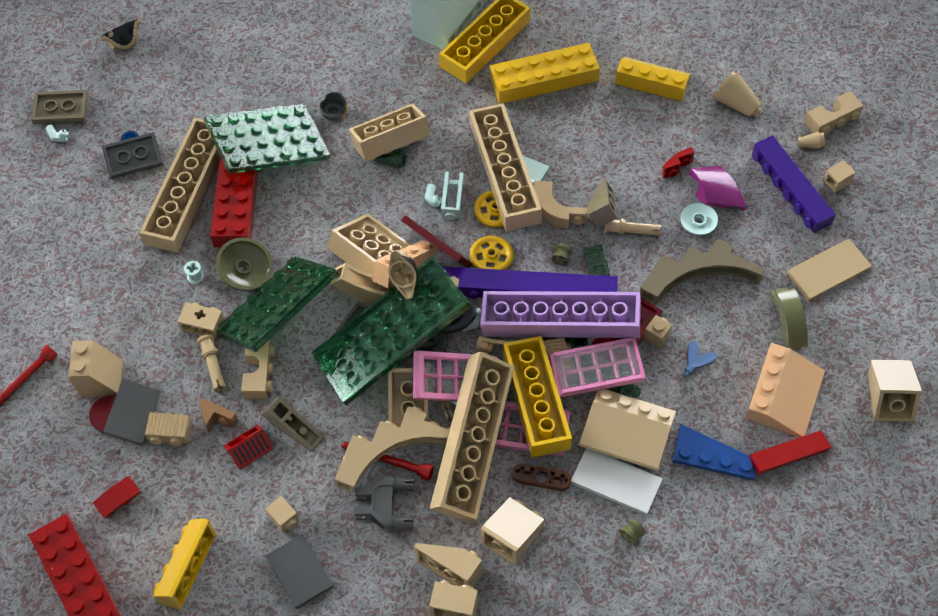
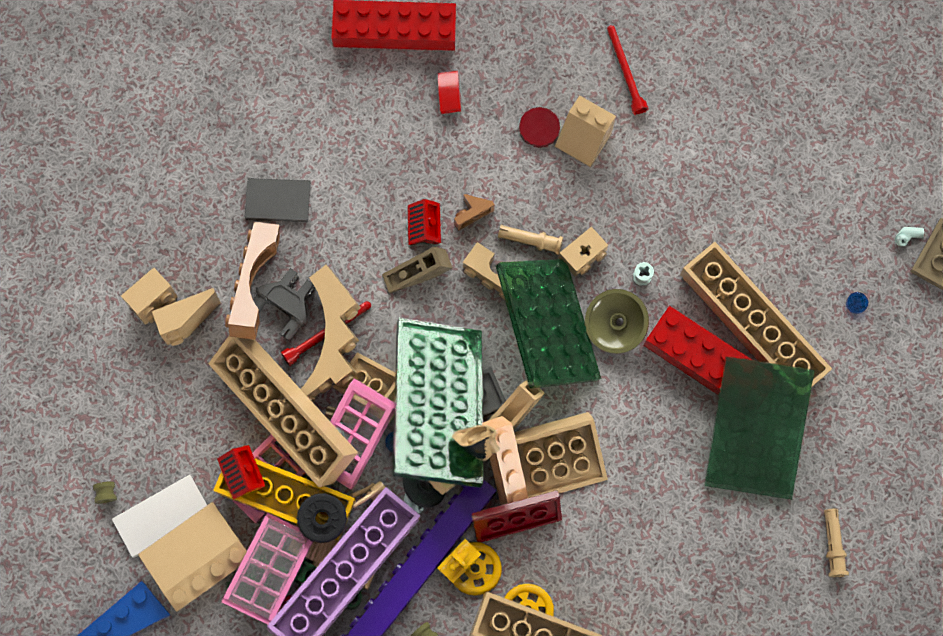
camera: 120 degrees right, 15 degrees up
(131, 412) = (525, 144): dark grey tile -> none
(132, 155) = (831, 292): dark grey tile -> none
(168, 428) = (486, 165): tan brick -> none
(185, 563) = (345, 111): yellow slope -> none
(282, 514) = (335, 212): tan brick -> none
(325, 62) = (836, 553): none -> tan pin
(333, 106) = (765, 525): dark grey hair -> none
(389, 132) = (687, 557): tan brick -> none
(393, 159) = (656, 545): clear green cone -> none
(420, 502) = (262, 246): none -> arch
(432, 199) = (584, 553): light aqua arm -> none
(452, 197) = (567, 573): light aqua window -> none
(495, 258) = (459, 561): none -> yellow hips
(511, 530) = (179, 389): slope -> none
(534, 341) = (336, 518): none -> black wheel
(537, 469) = (212, 443): reddish brown beam -> none
(544, 424) = (240, 471): none -> red panel

